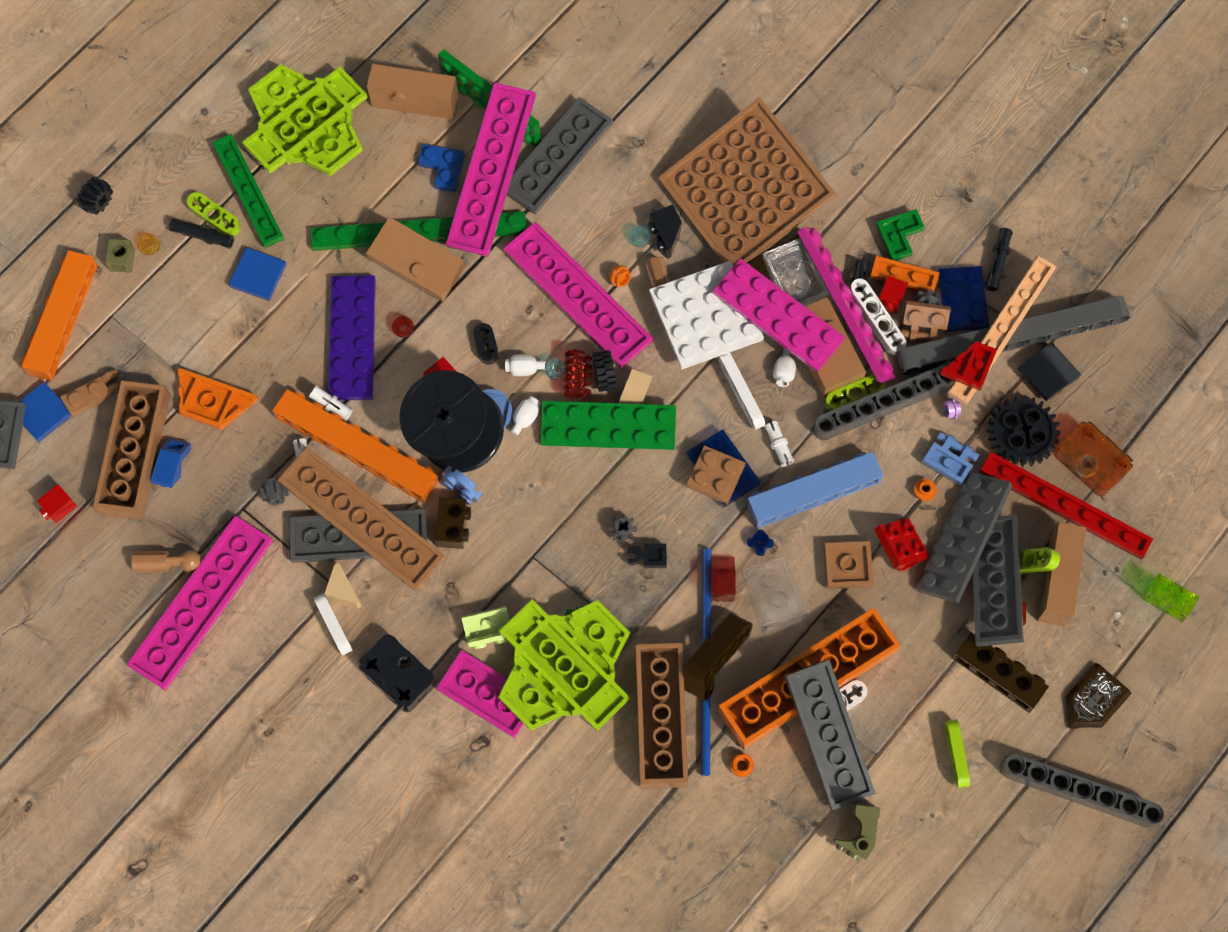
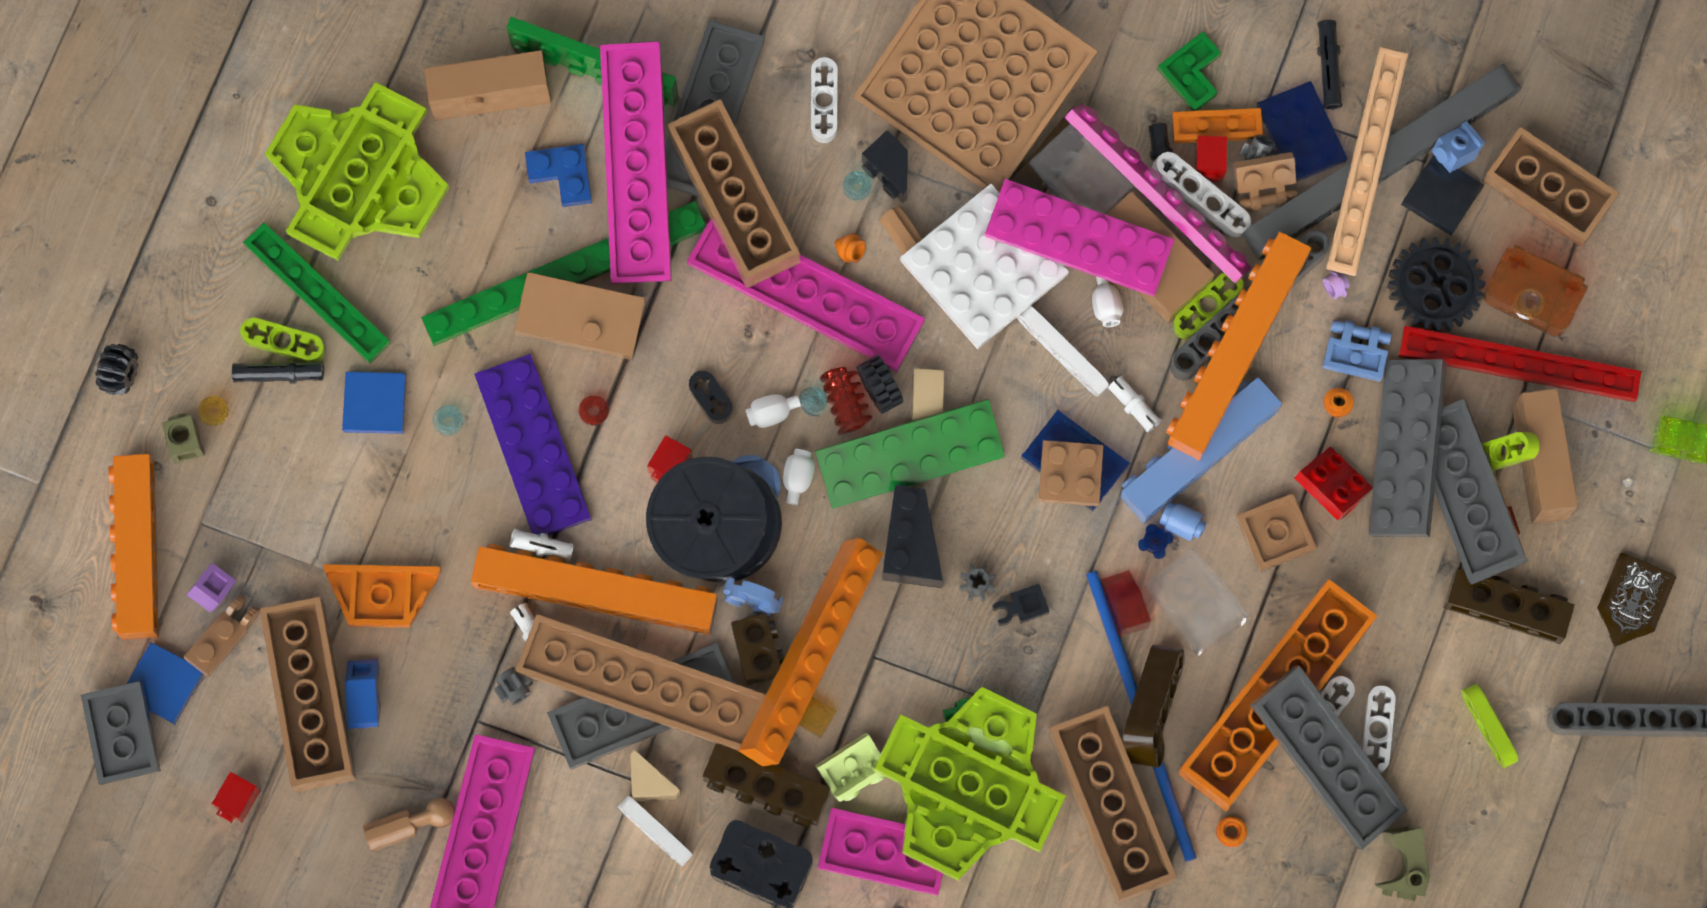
camera: 20 degrees left, 5 degrees up
(97, 357) = (211, 587): none -> medium lavender brick
(302, 295) = (441, 414): none -> clear light blue plate
(399, 592) = (726, 759): none -> dark brown brick
(475, 583) = (817, 717): none -> clear yellow plate
(485, 536) = (810, 652): none -> orange brick
(550, 211) = (733, 193): none -> medium nougat brick
(586, 484) = (911, 543): none -> black wedge
(639, 182) = (832, 79): none -> white beam
(784, 535) = (1183, 521): none -> medium blue brick
(865, 424) = (1238, 346): none -> orange brick
(886, 716) = (1388, 708): none -> white beam
(971, 366) = (1346, 224): red wing -> none
(1071, 342) = (1458, 147): none -> medium blue brick
(1129, 390) = (1551, 186): none -> medium nougat brick

